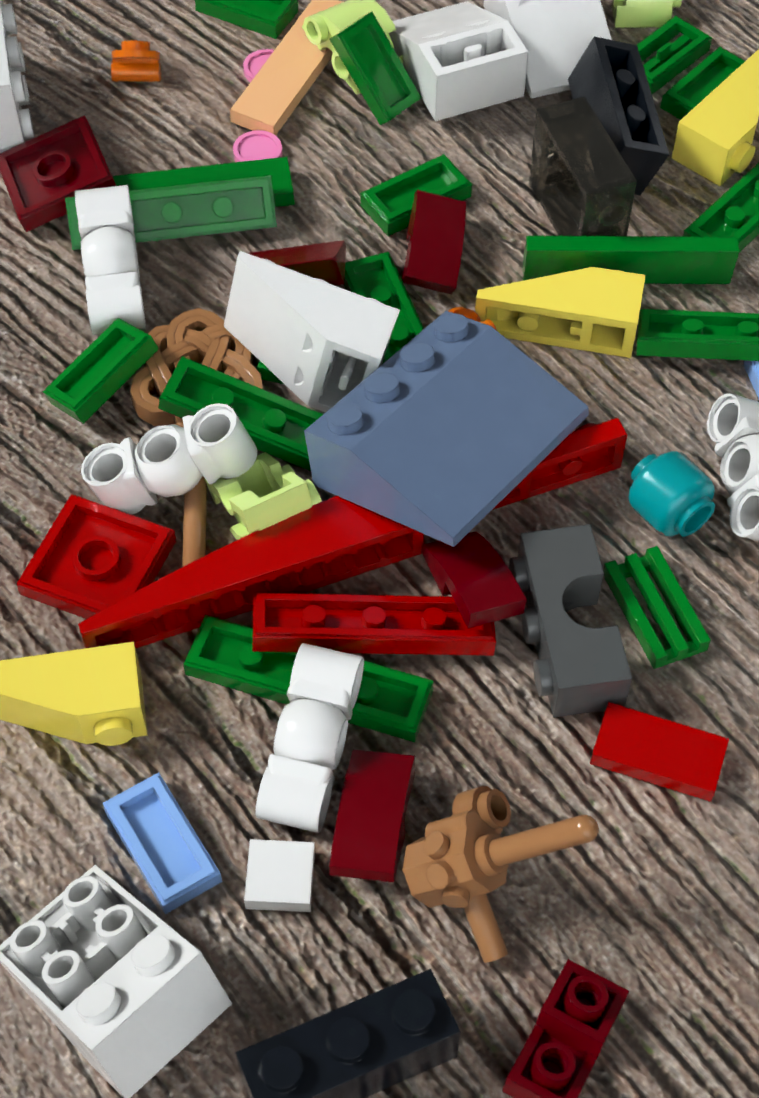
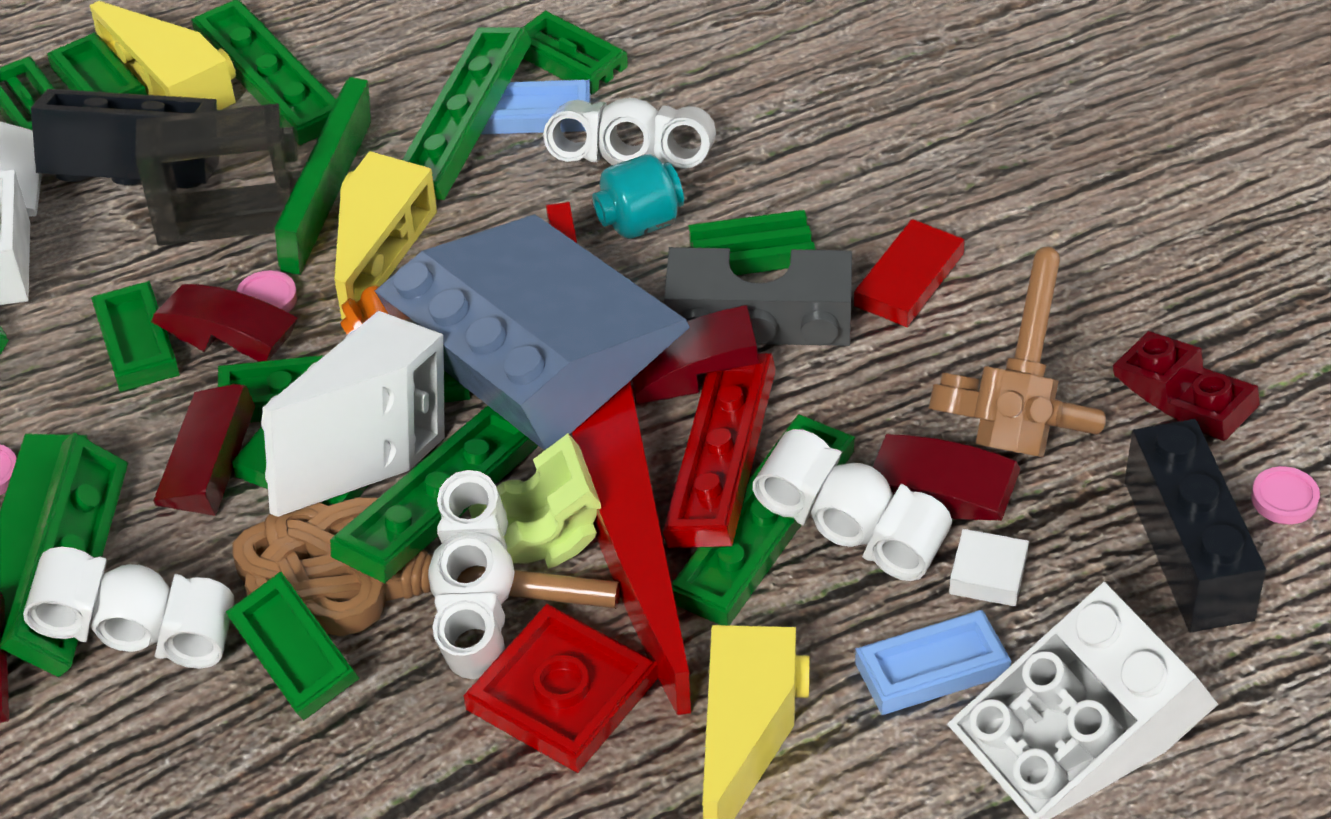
camera: 75 degrees left, 10 degrees down
(488, 265) = (272, 288): none -> bright pink piece

